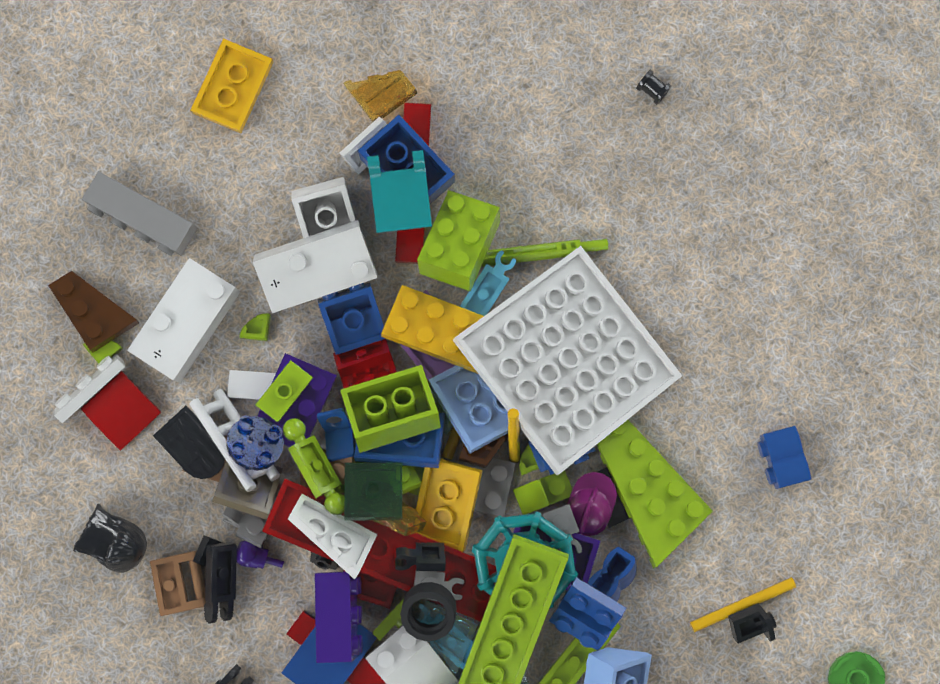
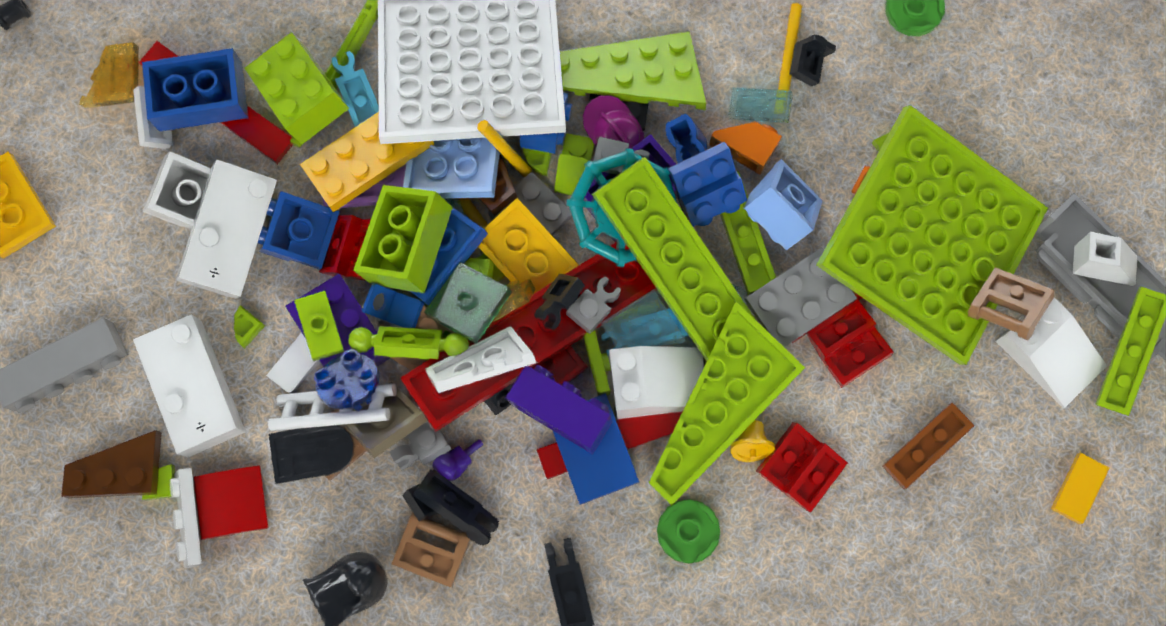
camera: 55 degrees left, 5 degrees down
(400, 196) = (215, 105): teal flag -> none
(421, 630) = (635, 325): black tyre -> none
(649, 621) = (749, 143): none -> orange slope
(688, 608) = (760, 105): none -> clear light blue plate

